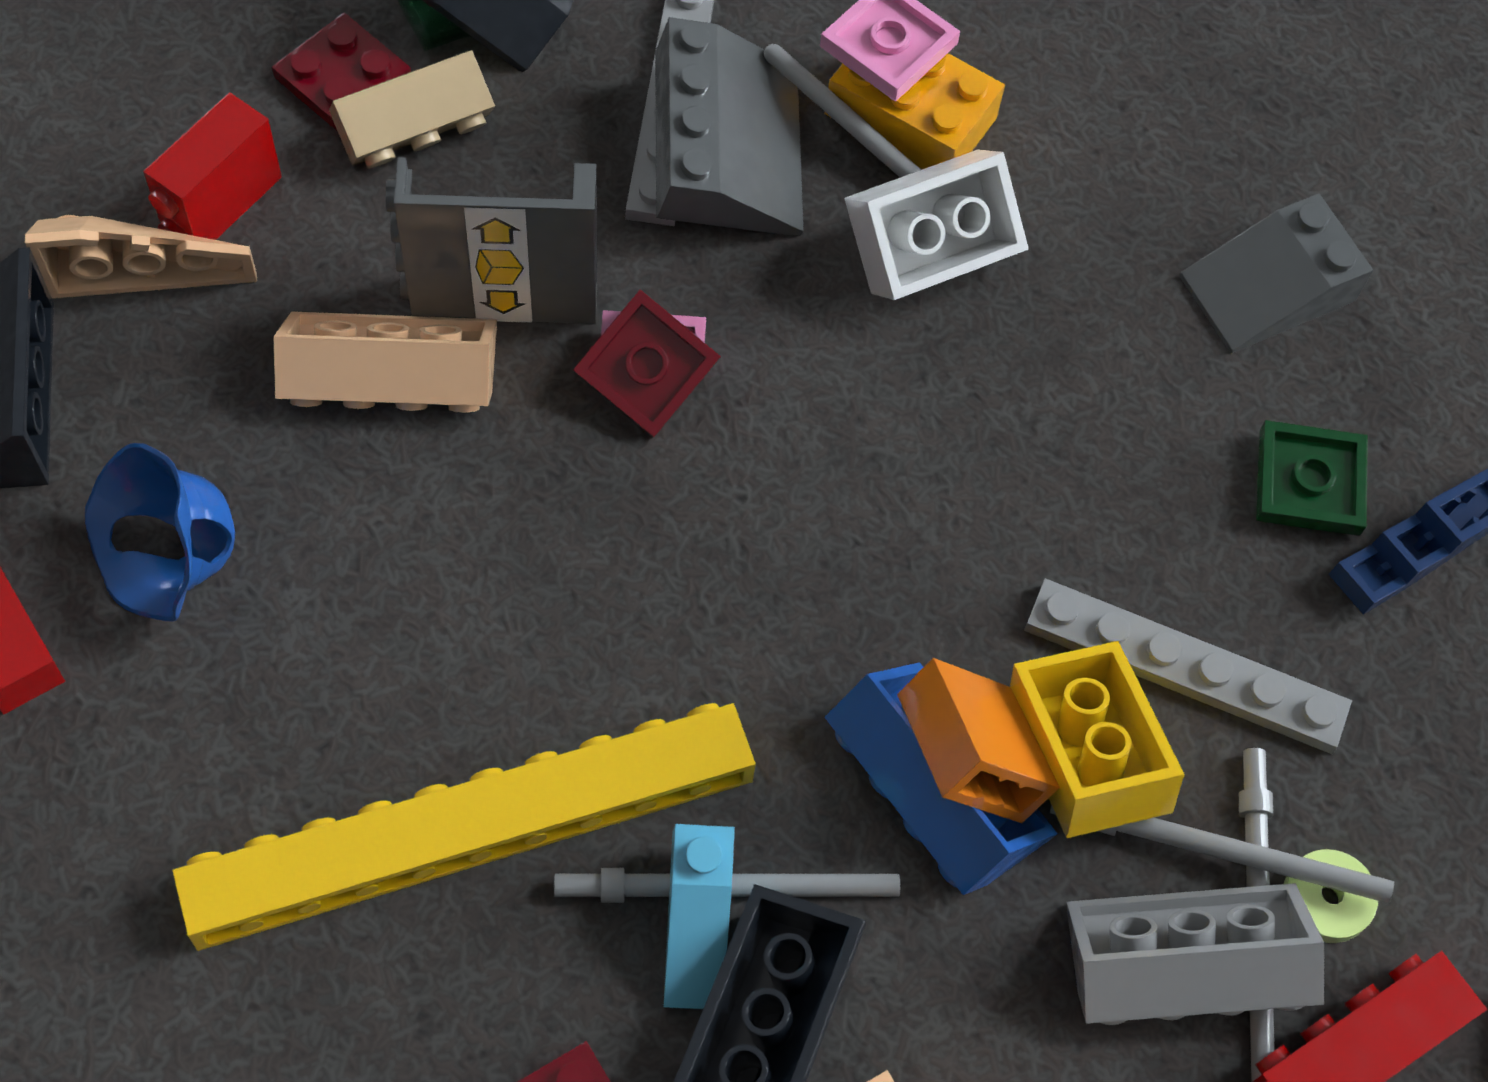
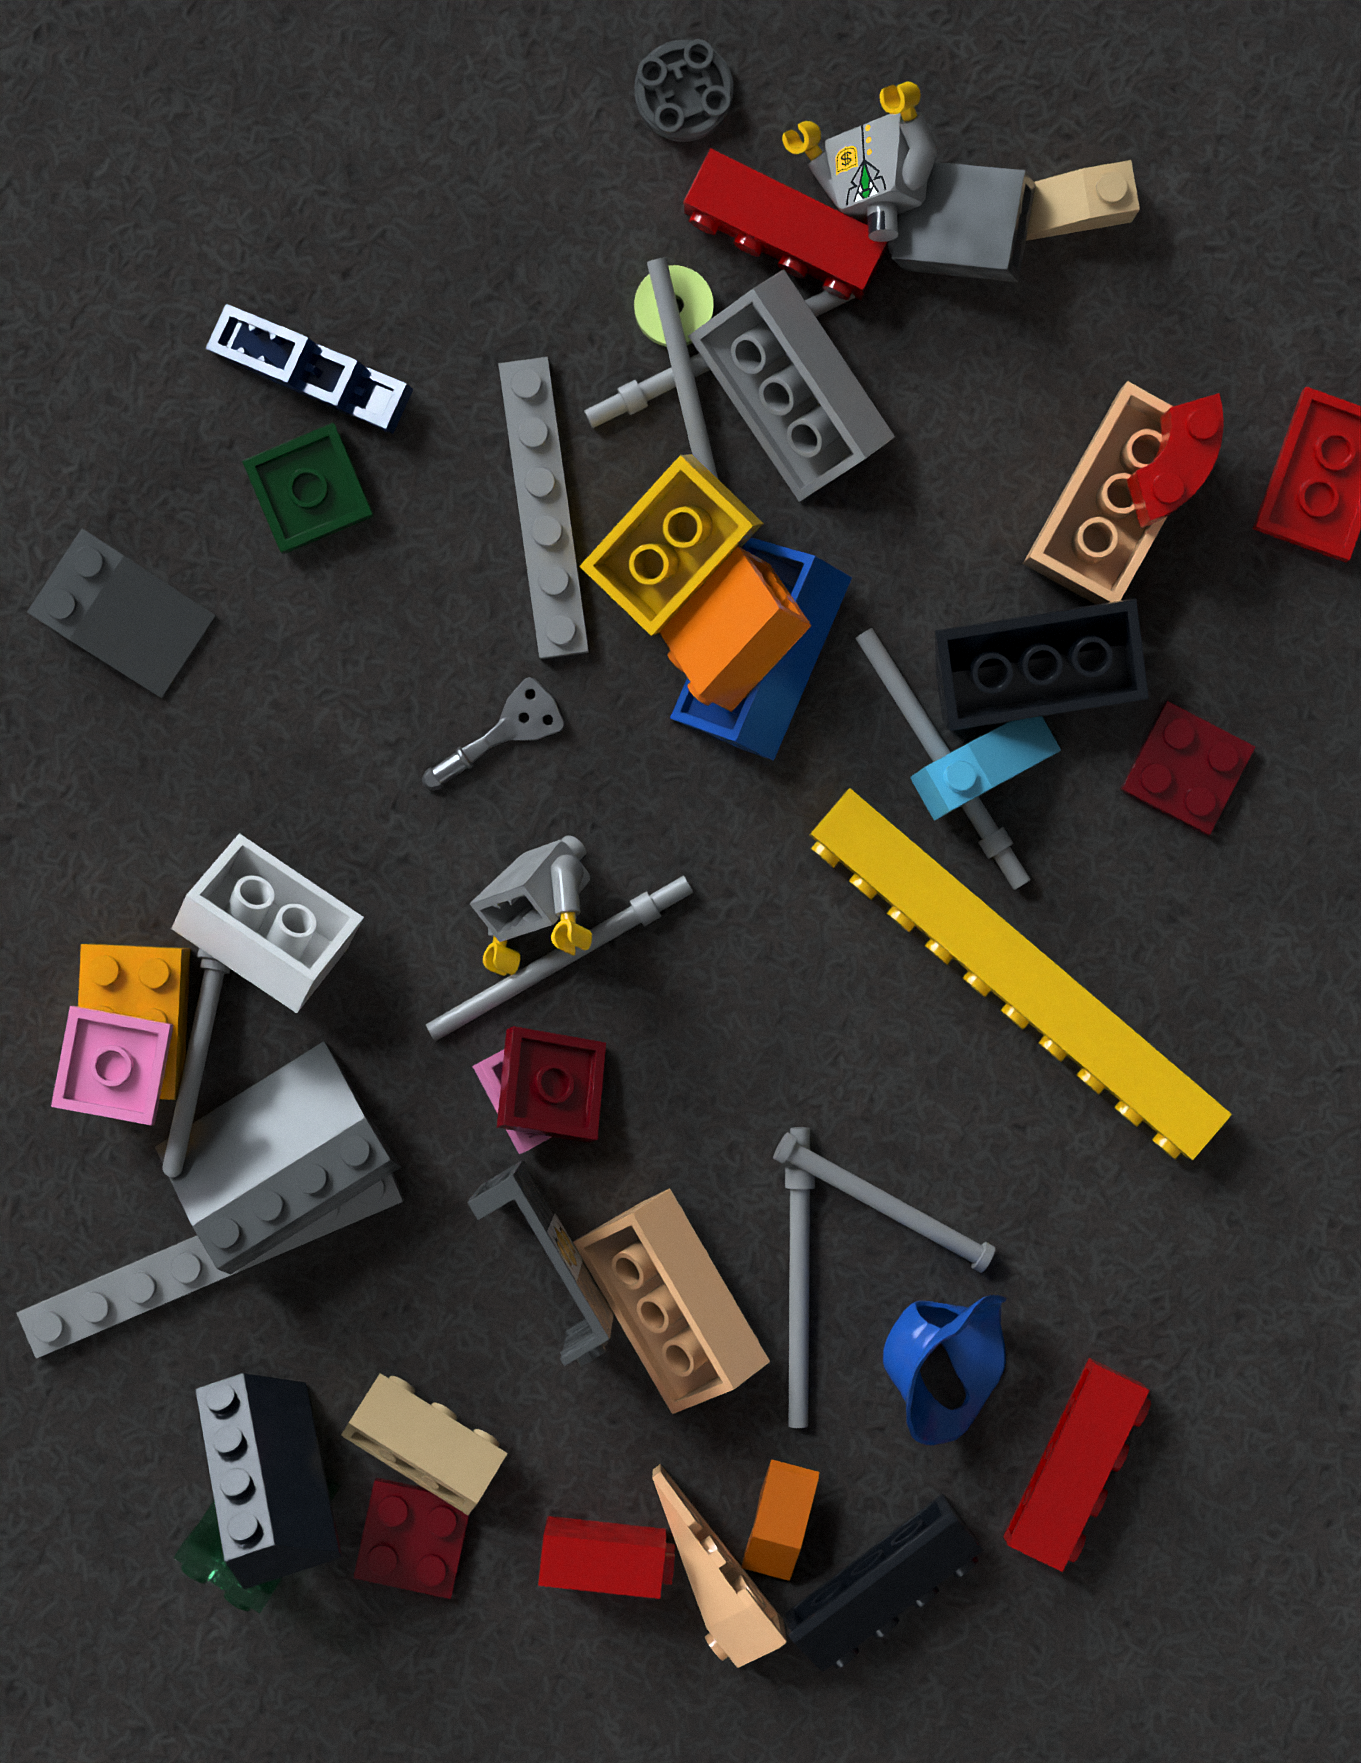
camera: 120 degrees left, 25 degrees up
(134, 334) = (780, 1520): none -> orange slope
(341, 578) = (883, 1202): none -> light grey bar
(414, 522) = (799, 1183): none -> light grey bar
(753, 532) = (643, 910): none -> light grey bar
(830, 435) = (532, 896): none -> light grey torso
(992, 522) = (506, 729): none -> flat silver piece

